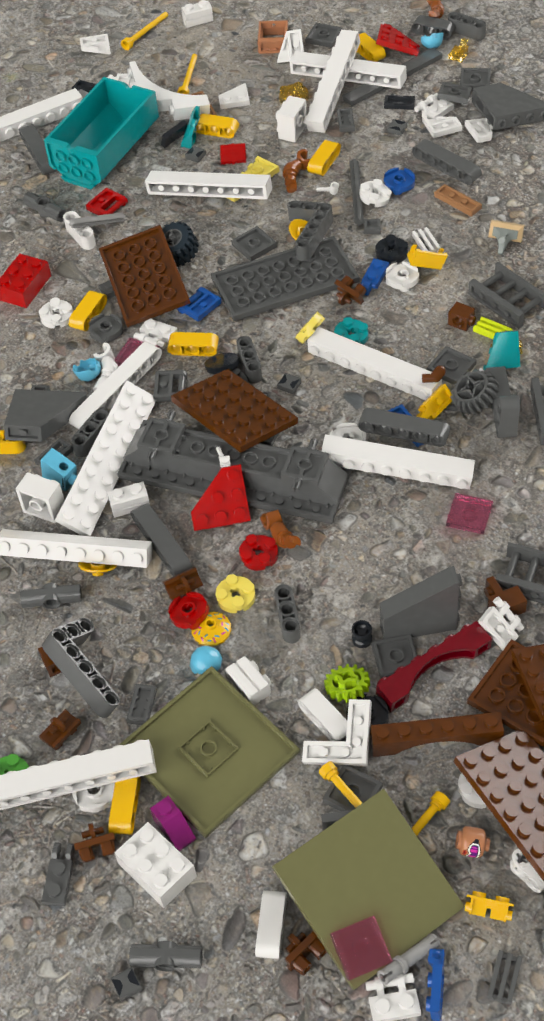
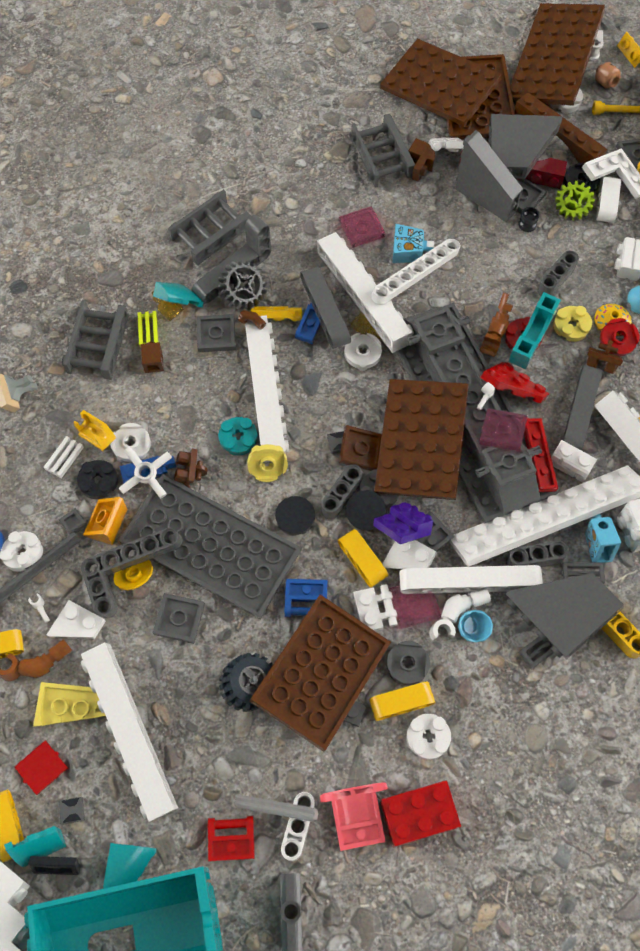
camera: 135 degrees left, 15 degrees up
(59, 256) = (357, 815): none -> coral piece
(142, 158) = (126, 863): none -> teal slope
(154, 480) = (545, 474): none -> red tile
(166, 365) = (409, 555): none -> white wing
(185, 445) = (503, 430): none -> clear pink tile
(186, 366) = (404, 523): none -> dark purple plate
(245, 538) = (534, 331): none -> teal arch
(260, 330) = (295, 515): none -> black tile
(273, 385) = (360, 448): none -> reddish brown tile
(303, 193) = (76, 623): none -> white wing
(353, 238) = (106, 520): none -> light orange slope
(365, 262) = (150, 478): none -> white bar
(381, 513) = (414, 276): none -> white beam
(418, 529) = (409, 244): none -> medium azure torso
(442, 662) = (521, 139): none -> dark grey slope

